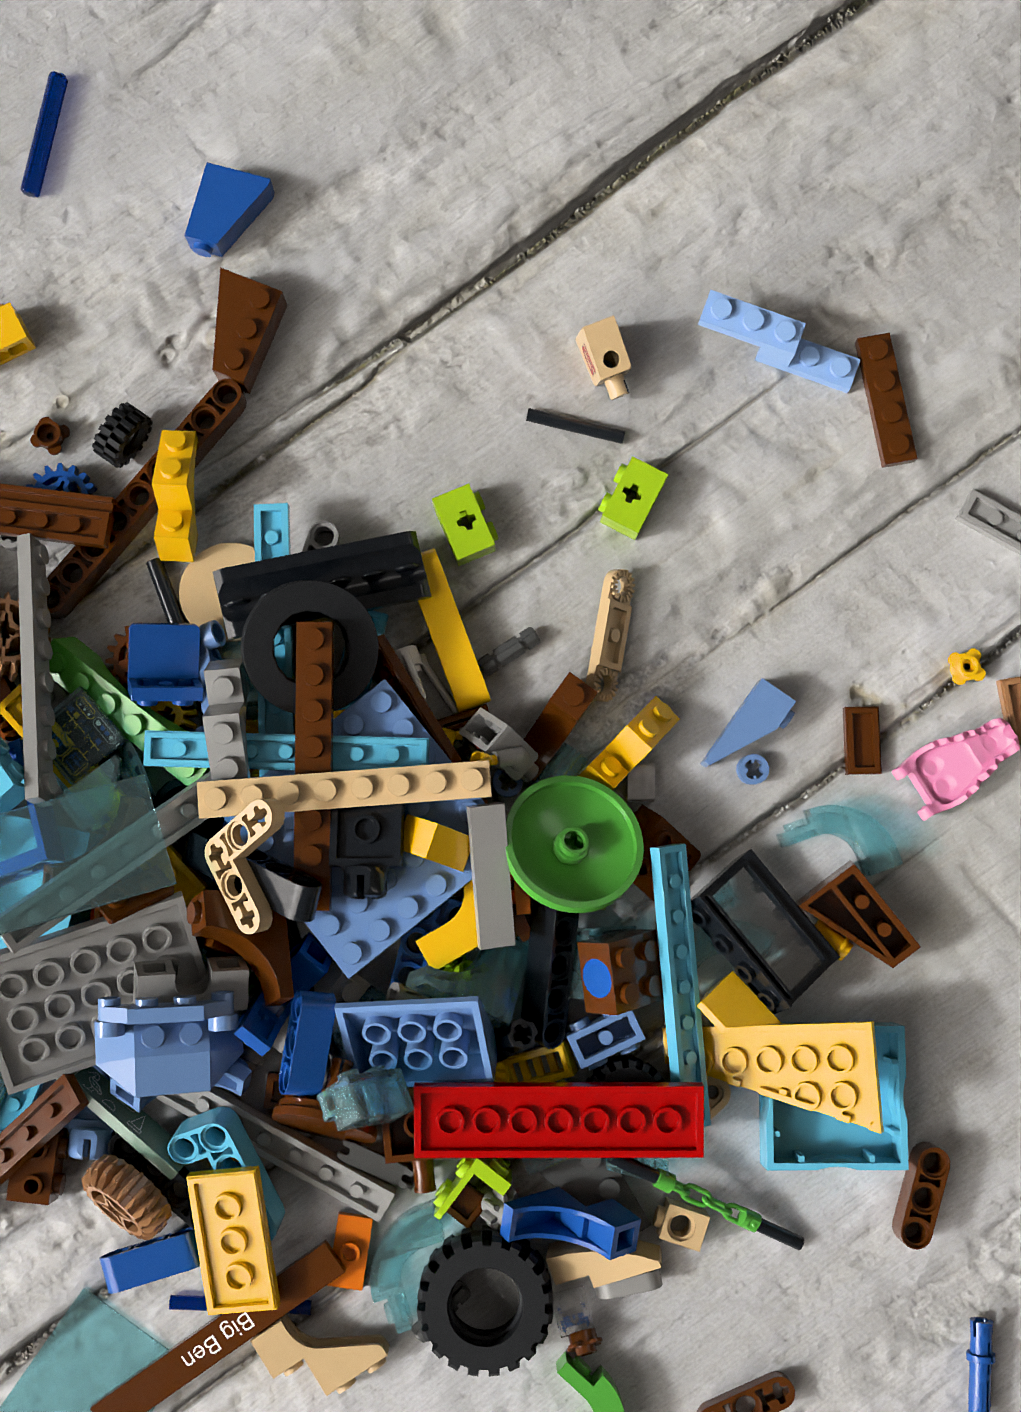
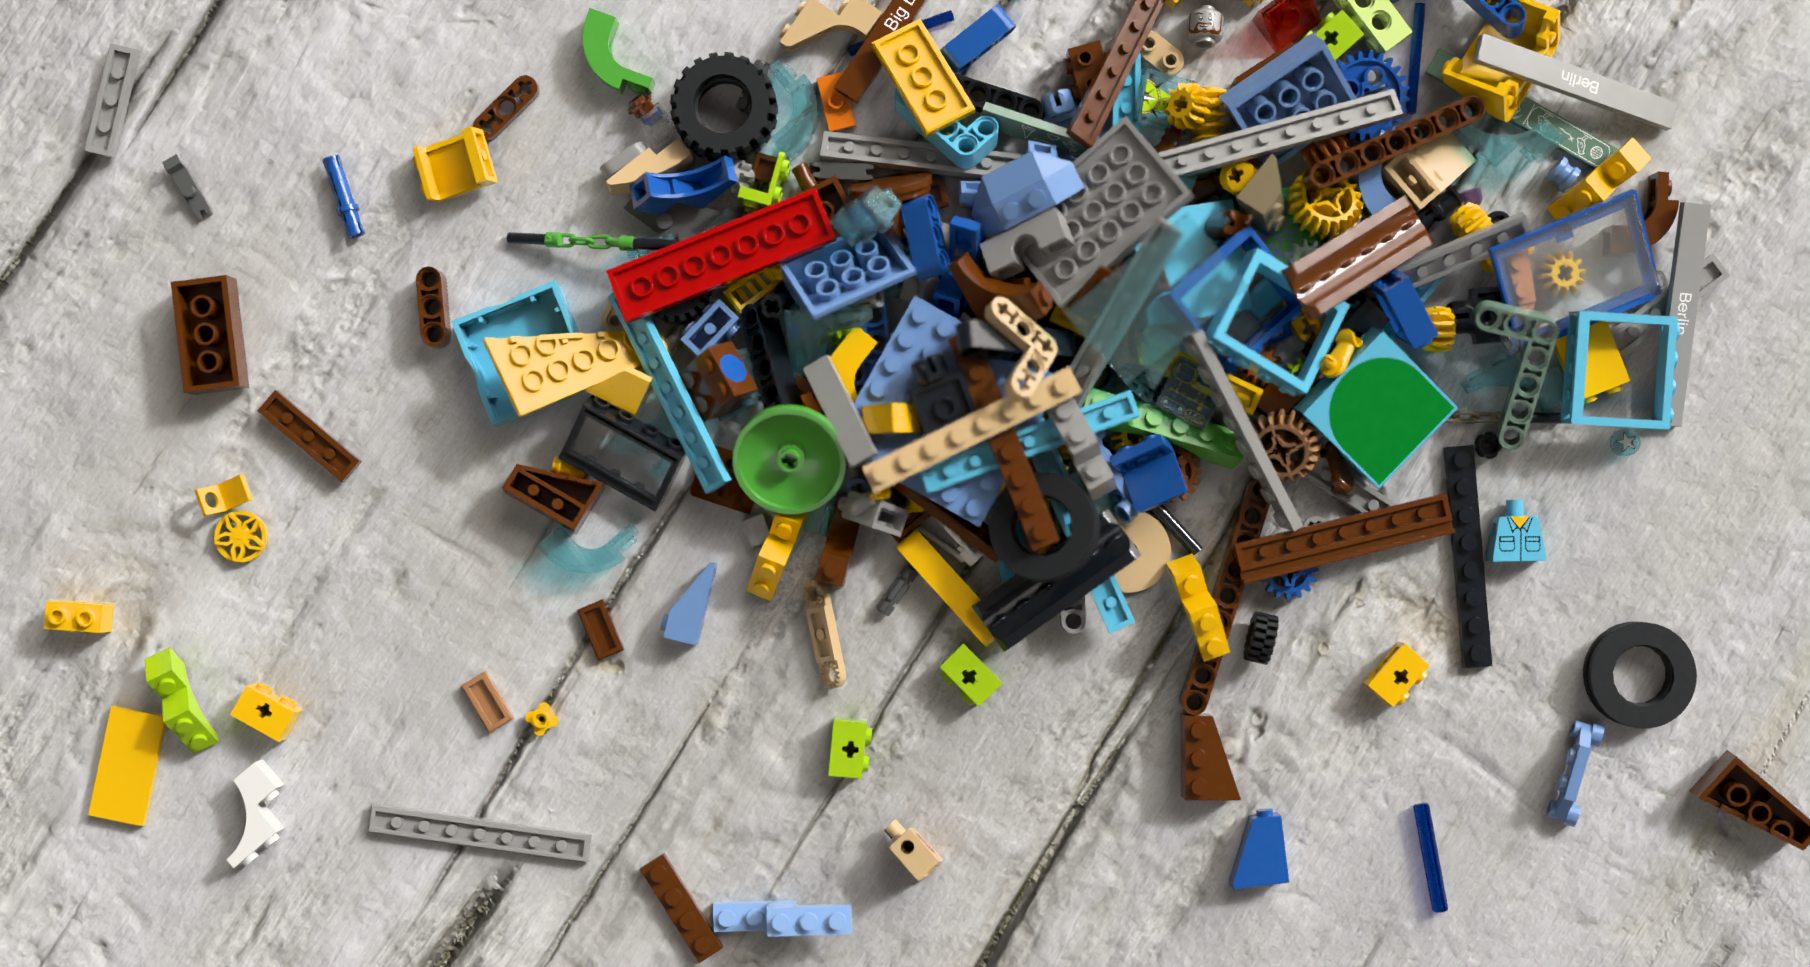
camera: 165 degrees right, 5 degrees up
(45, 427) = (1326, 621): reddish brown plate -> none
(126, 1197) = (1013, 77): medium nougat gear -> none
(147, 1010) = (1048, 214): medium blue plate -> none
(575, 426) = (916, 789): black bar -> none
(692, 1235) = (591, 211): tan brick -> none
(763, 768) = (683, 570): medium blue bush -> none
(834, 1359) = (454, 166): none -> yellow panel
(955, 766) = (522, 637): bright pink animal -> none

